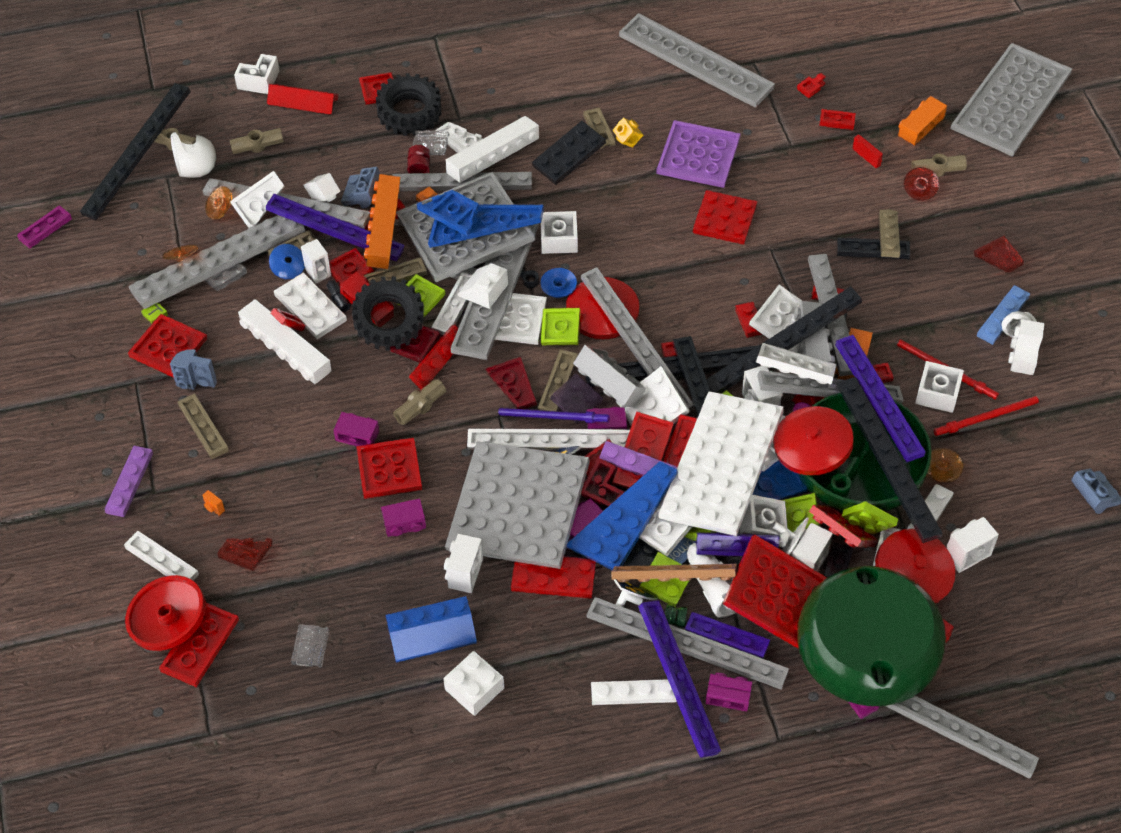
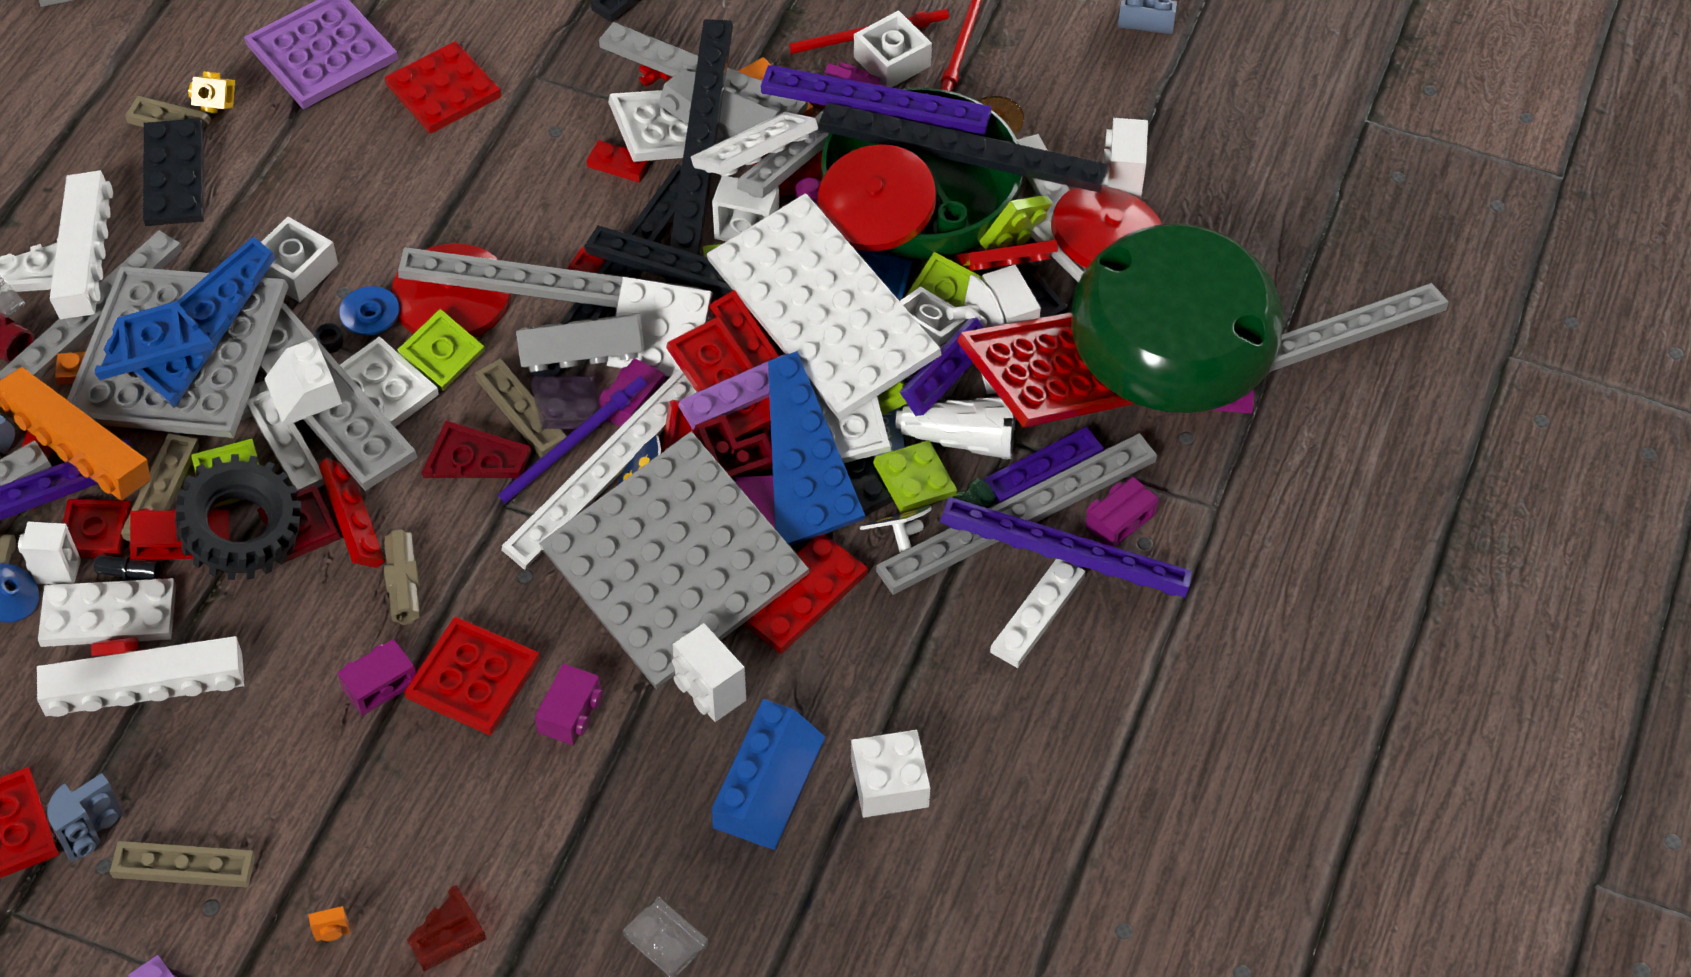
camera: 55 degrees left, 0 degrees up
(666, 572) = (923, 459): medium nougat plate -> none
(896, 383) = (850, 72): none -> magenta plate

